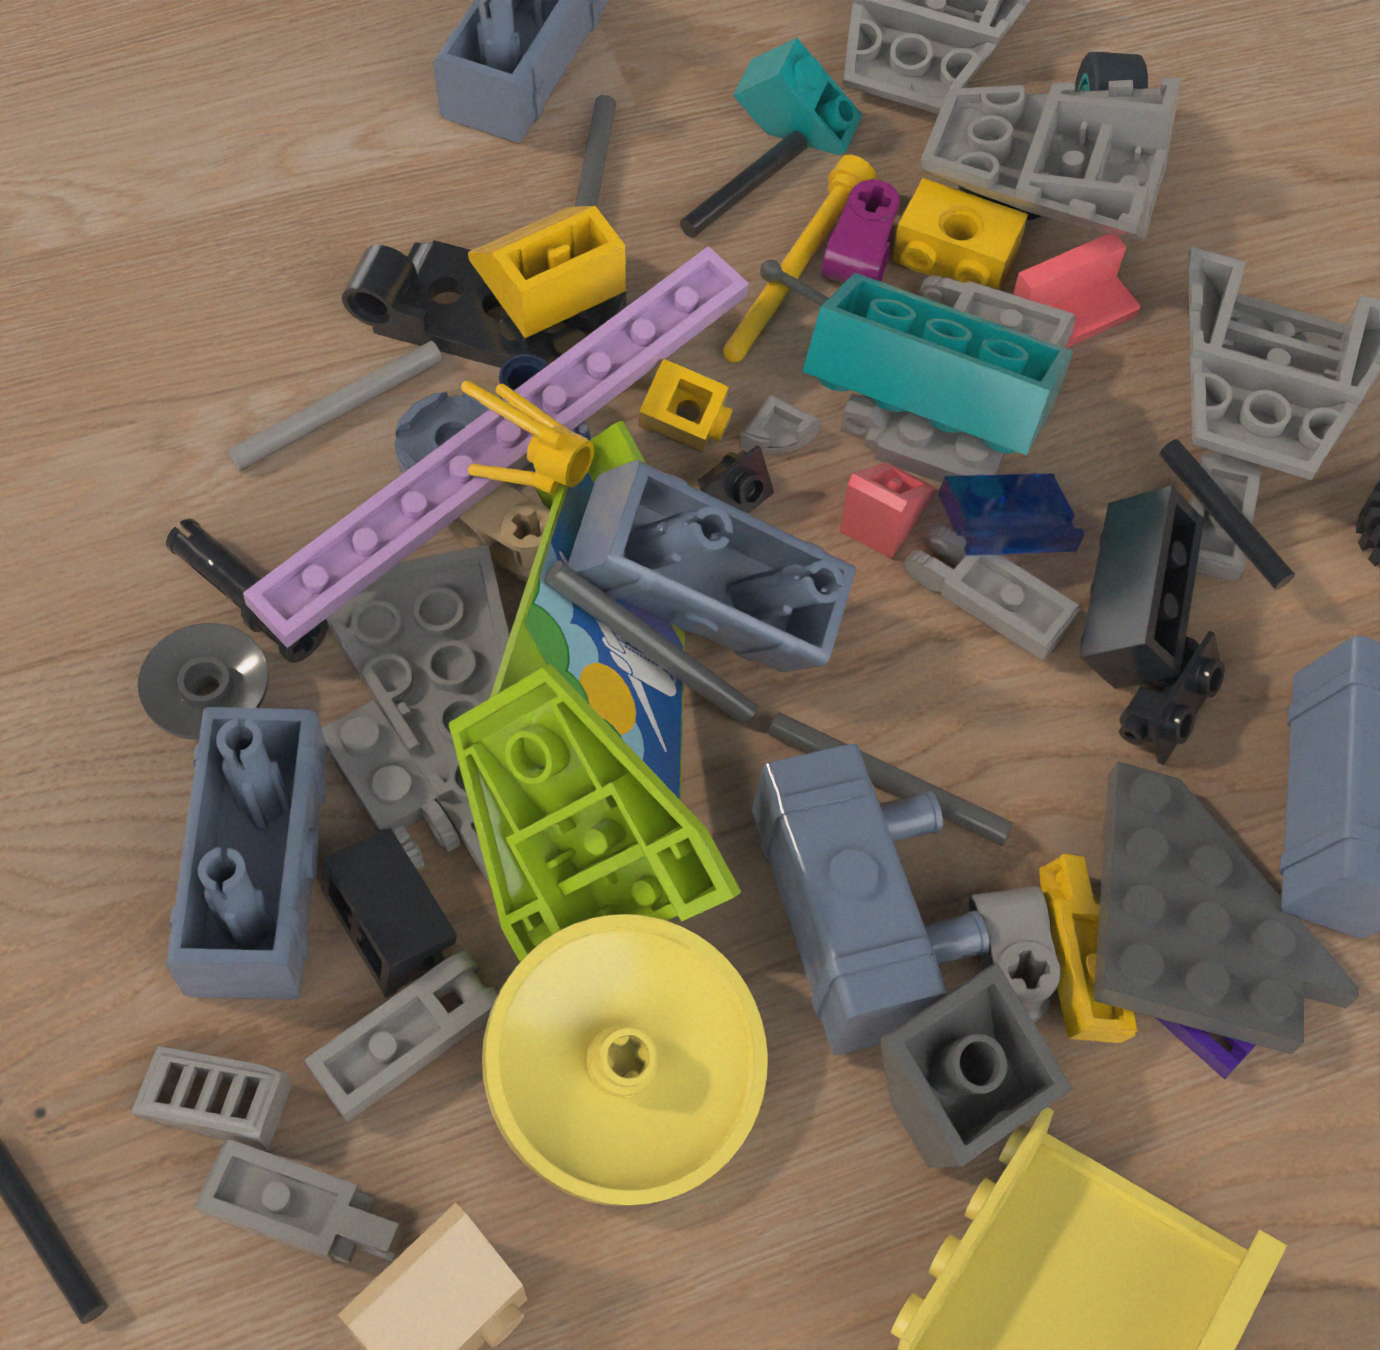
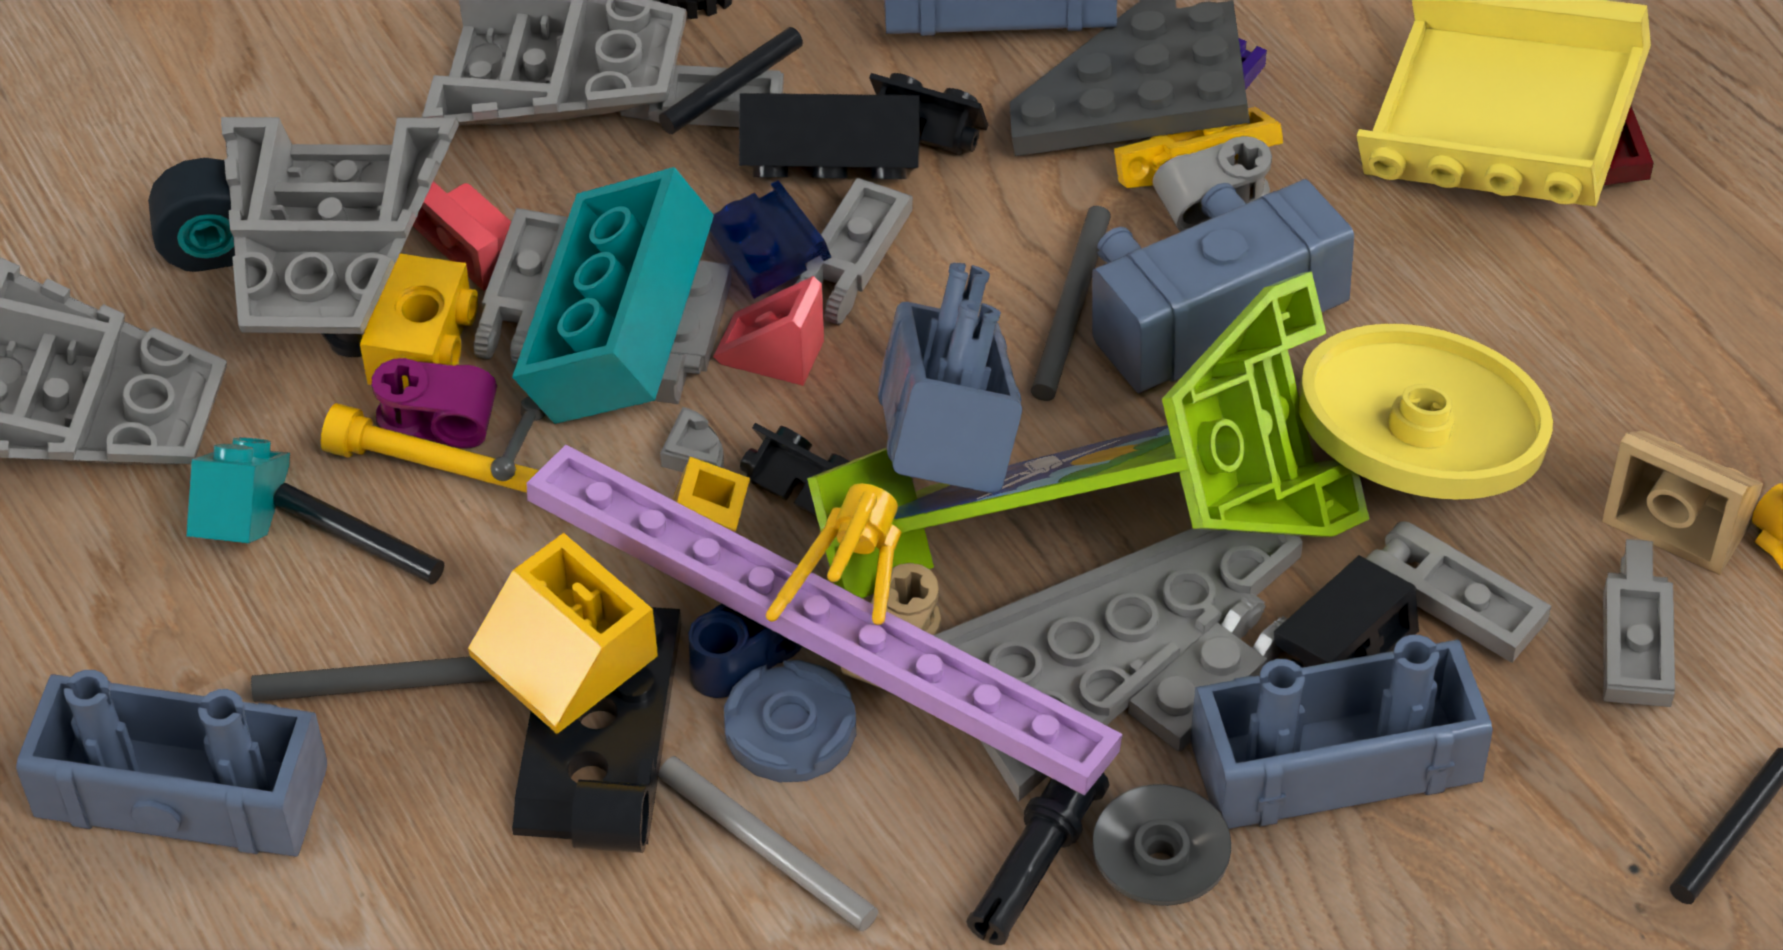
camera: 100 degrees left, 10 degrees down
(264, 1114) = (1568, 679): light grey slope -> none
(650, 642) = (1027, 447): dark grey bar -> none
(969, 1070) = (1360, 174): dark grey slope -> none

